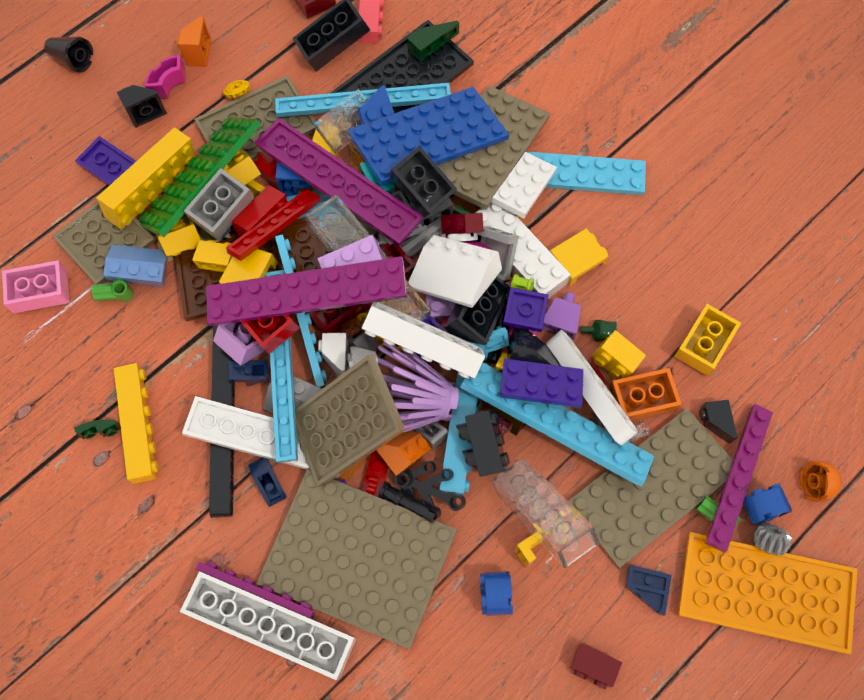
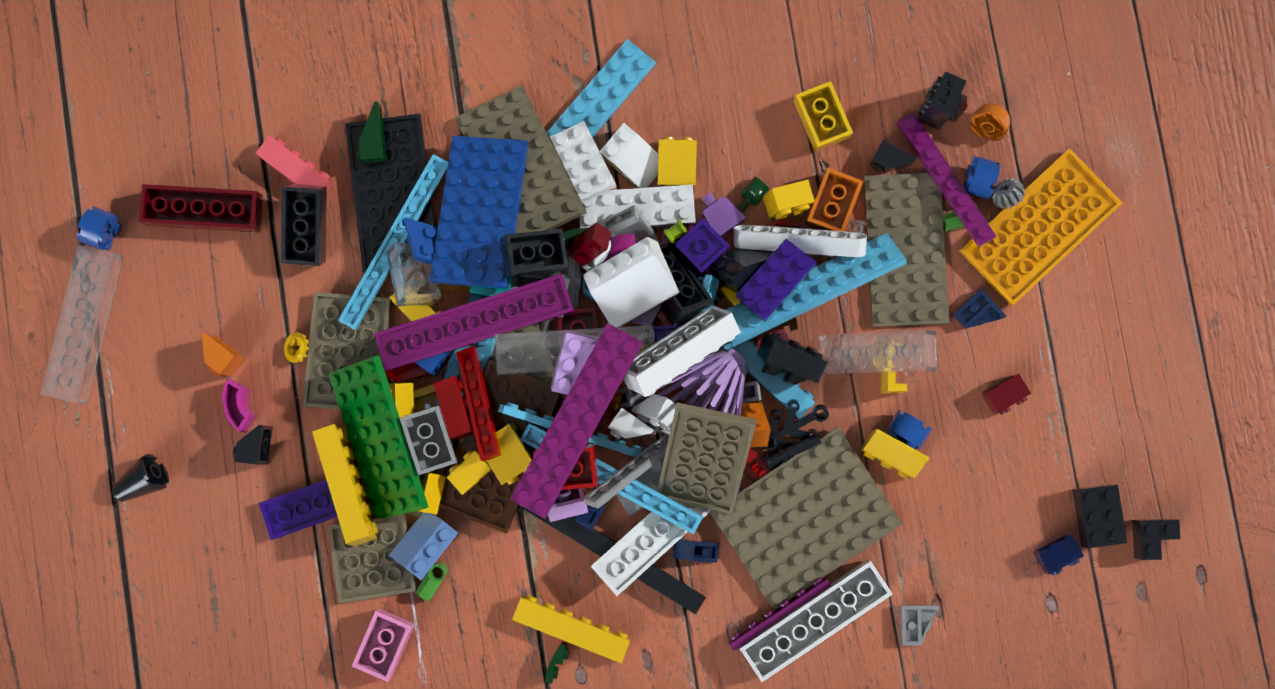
camera: 55 degrees left, 15 degrees up
(284, 366) = (627, 474): none -> light grey tile
(466, 595) = (893, 454): none -> yellow slope
(557, 218) = (631, 157): none -> white slope
(803, 424) = (943, 101): none -> black piece

